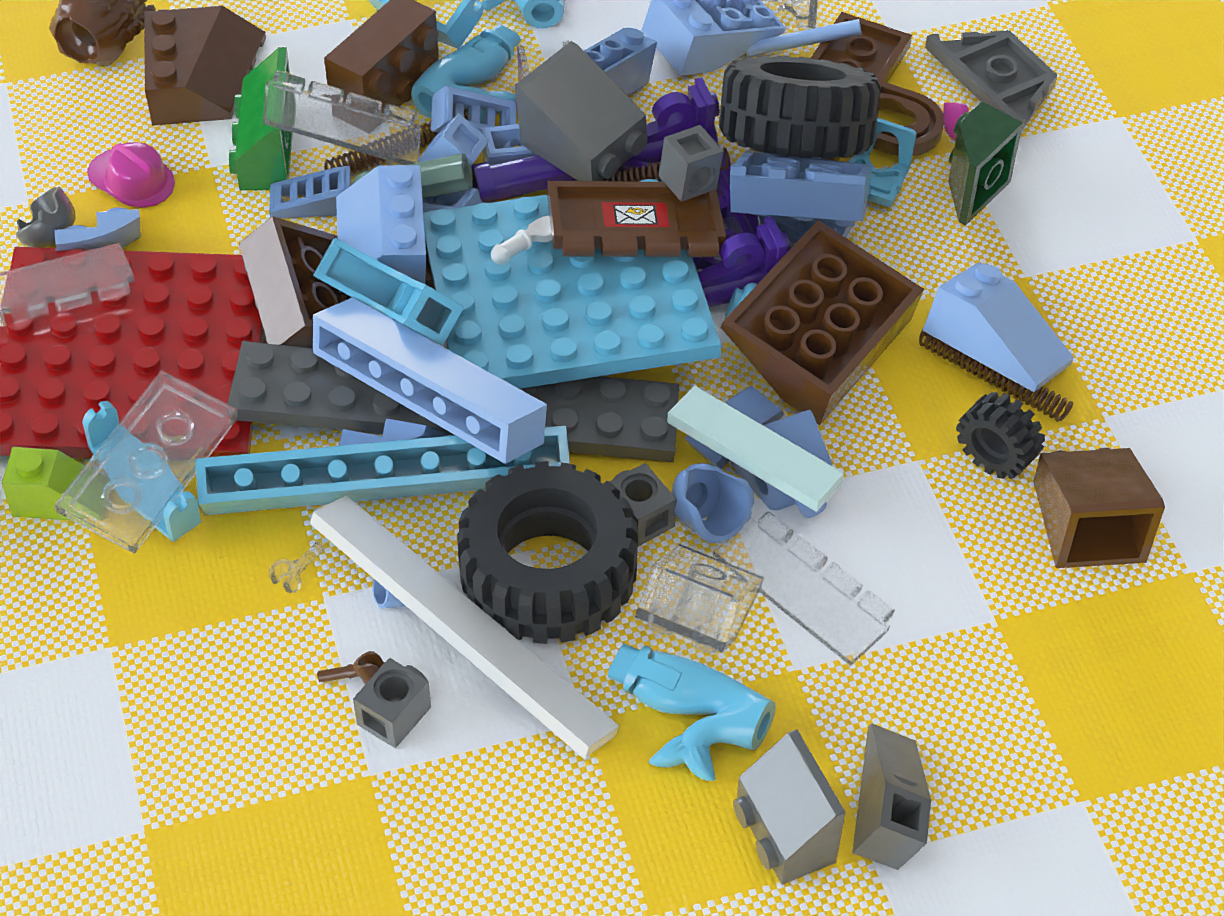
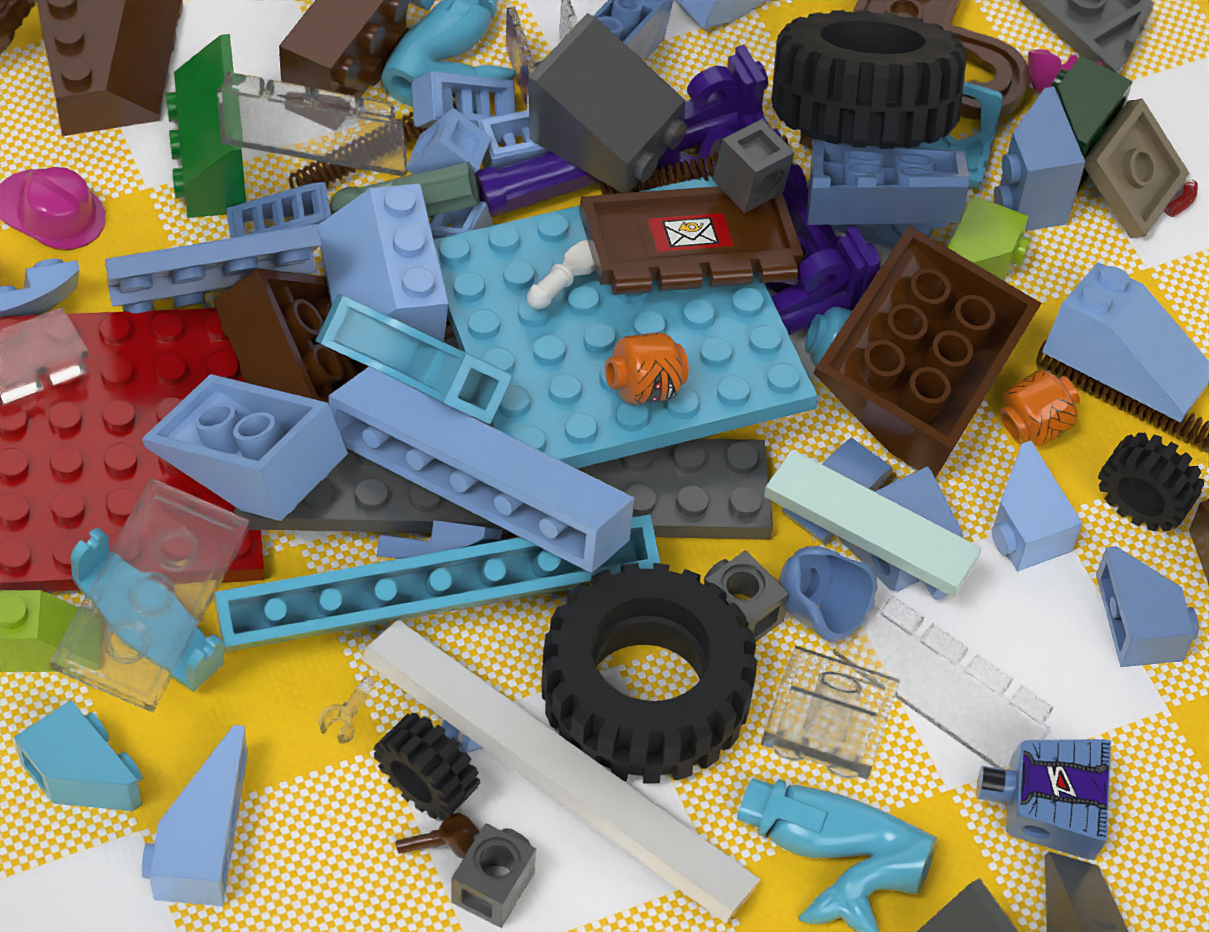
camera: 10 degrees left, 5 degrees up
(63, 586) = (75, 764): none -> medium azure slope
(156, 646) = (199, 830): none -> light blue slope
(227, 217) = (206, 267): none -> medium blue plate
(247, 350) = (250, 444): none -> light blue slope
(349, 610) = (426, 766): none -> black tyre
(578, 310) = (647, 368): none -> orange head
(882, 676) = (1054, 793): none -> medium blue torso
(894, 240) = (991, 236): none -> lime slope
(897, 456) = (1034, 514): none -> light blue slope
(915, 374) = (1039, 408): none -> orange head
(939, 189) = (1042, 165): none -> medium blue slope
(983, 539) = (1144, 611): none -> medium blue slope
(1022, 195) = (1136, 168): none -> dark tan plate
(1060, 226) = (1187, 192): none -> red leg

